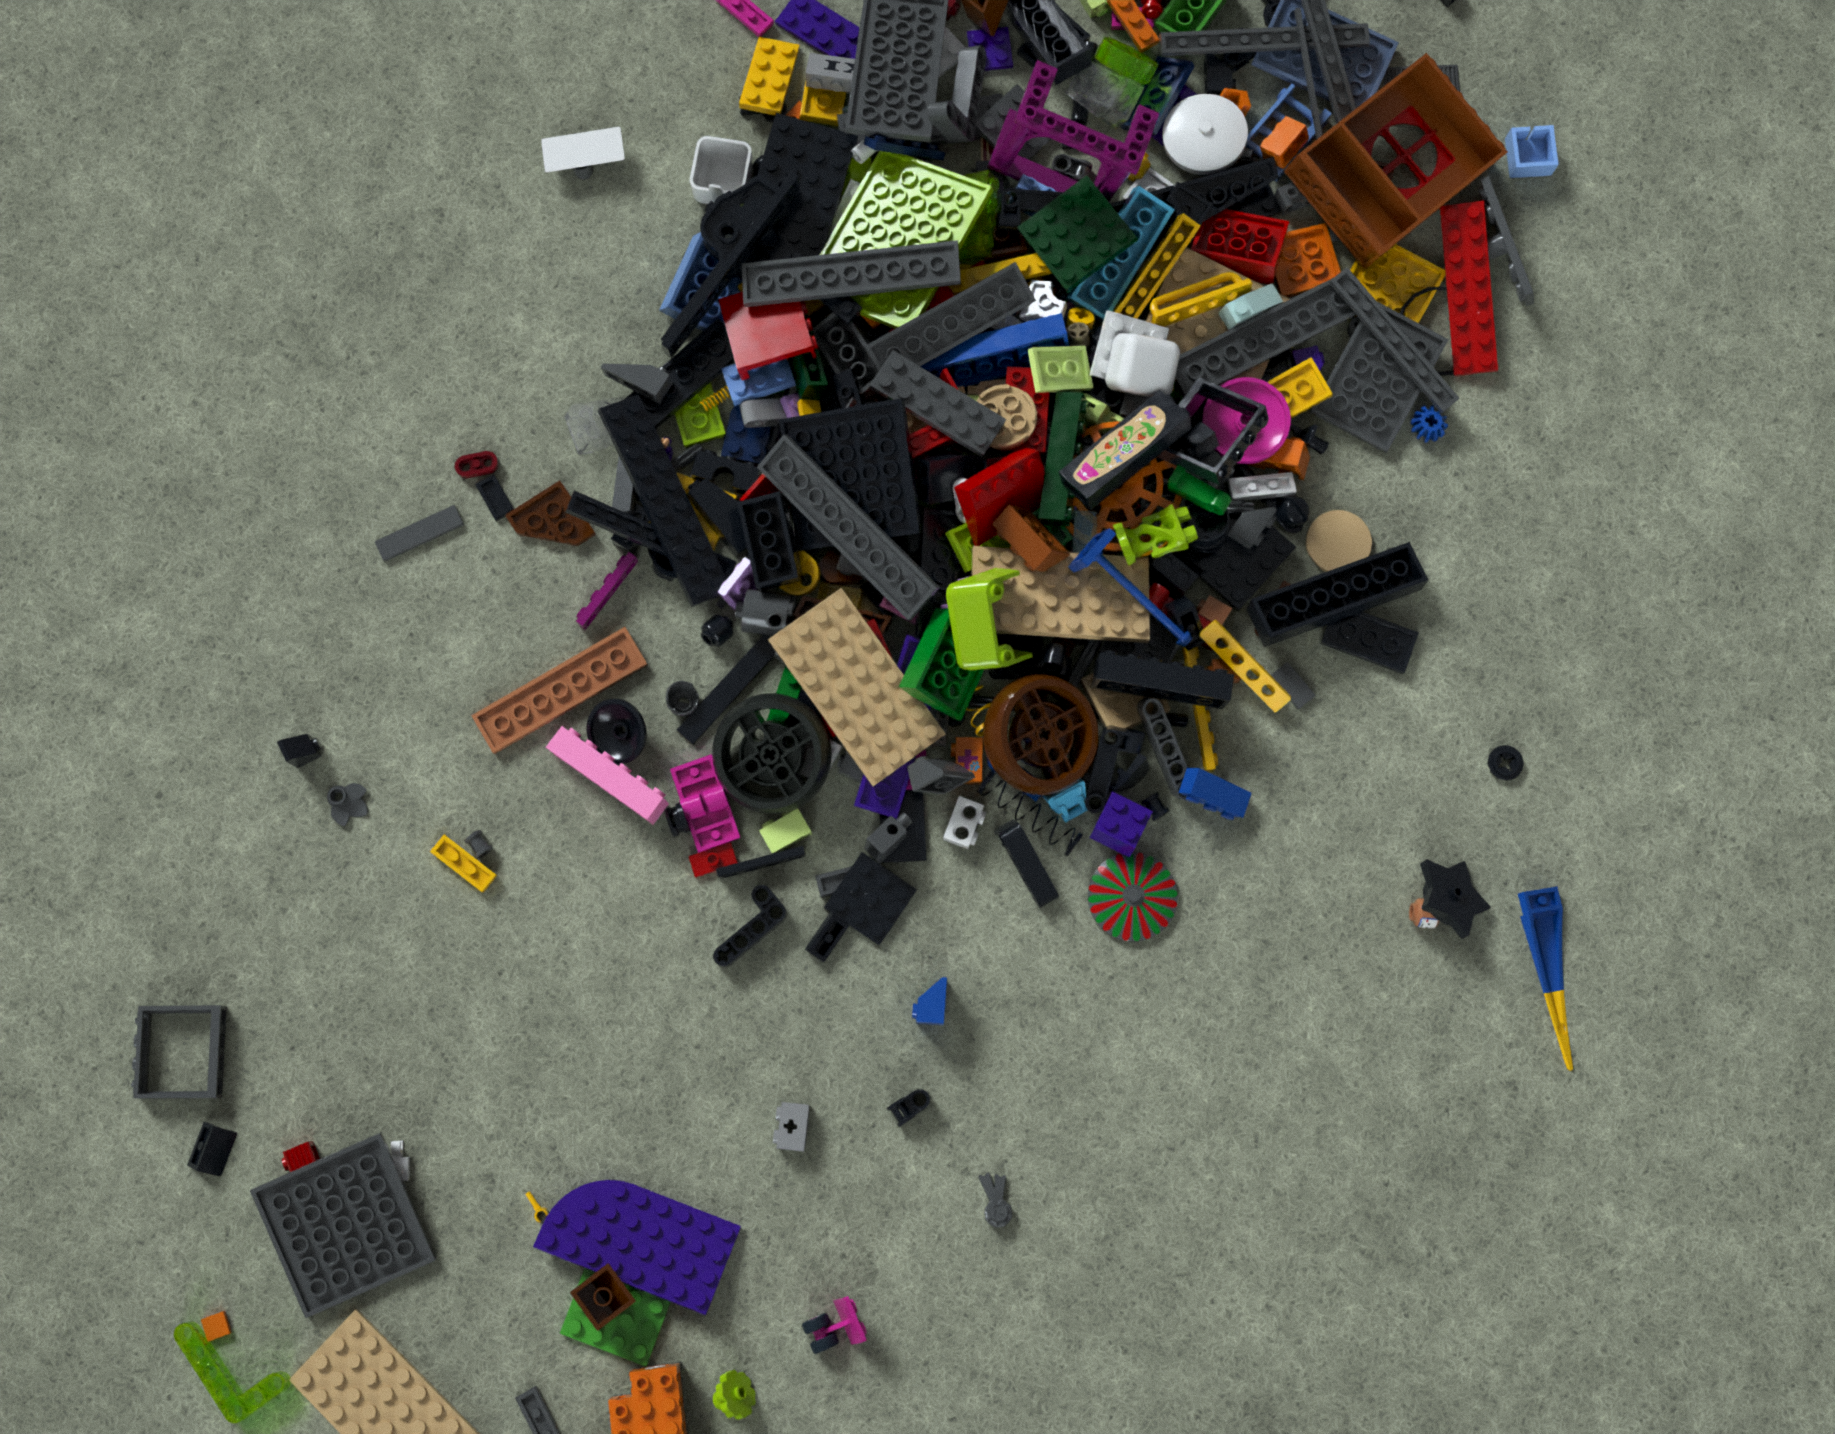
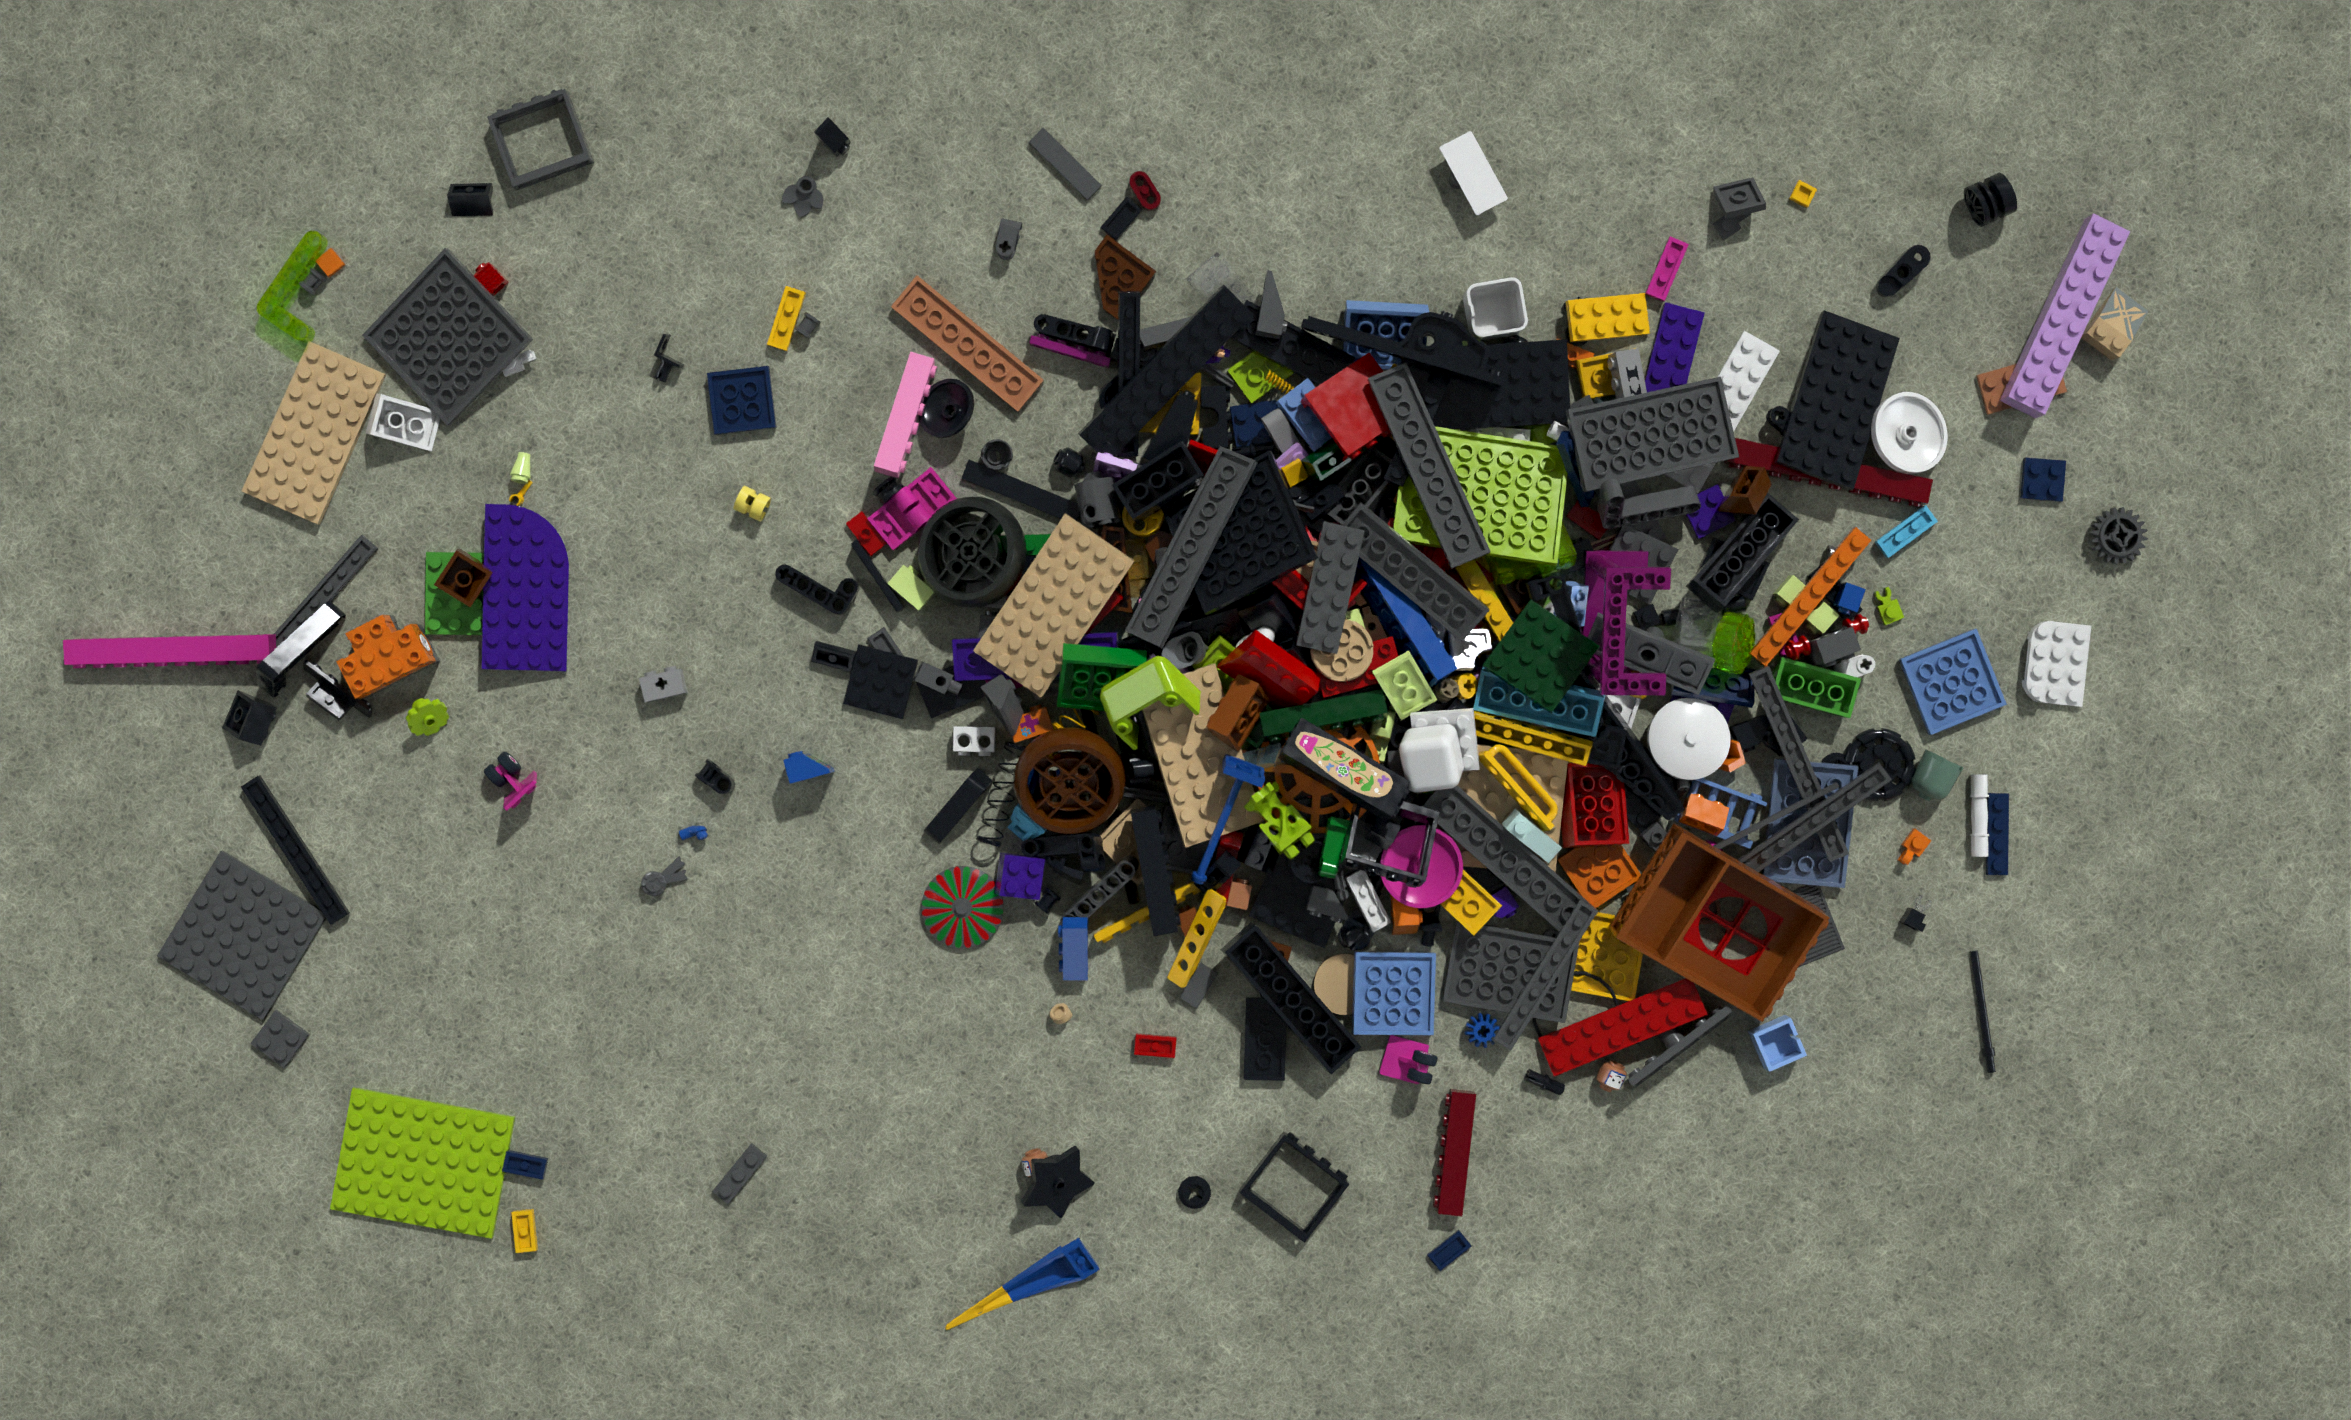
camera: 70 degrees right, 10 degrees up
(228, 1352) = (312, 281): none -> dark grey bush
(413, 1308) = (403, 422): none -> white slope
(460, 1003) = (666, 361): none -> black bracket
(469, 611) = (1008, 235): none -> dark grey piece
(512, 1197) = (521, 469): none -> yellowish green cone
(528, 939) = (741, 400): none -> dark blue plate
(603, 555) = (1098, 337): none -> black piece
(647, 964) = (759, 503): none -> light yellow wheel
(948, 567) = (1185, 650): none -> dark grey piece
(957, 1150) = (692, 831): none -> blue arm
(959, 158) = (1587, 520): none -> red plate
(1113, 123) = (1652, 653): none -> dark grey plate
(1276, 834) = (1060, 1013): none -> tan tile
(1337, 1232) = (739, 1173): none -> dark grey plate
(1340, 749) = (1155, 1045): none -> red plate
(1364, 495) = (1393, 993): none -> medium blue plate
(1437, 504) = (1407, 1060): none -> dark pink plate
(1500, 382) = (1544, 1082): none -> black axle
(1514, 316) = (1611, 1076): none -> nougat head
(1545, 490) = (1456, 1152): none -> dark red brick
(1560, 634) = (1277, 1215): none -> black window
(1642, 531) = (1449, 1250): none -> dark blue tile

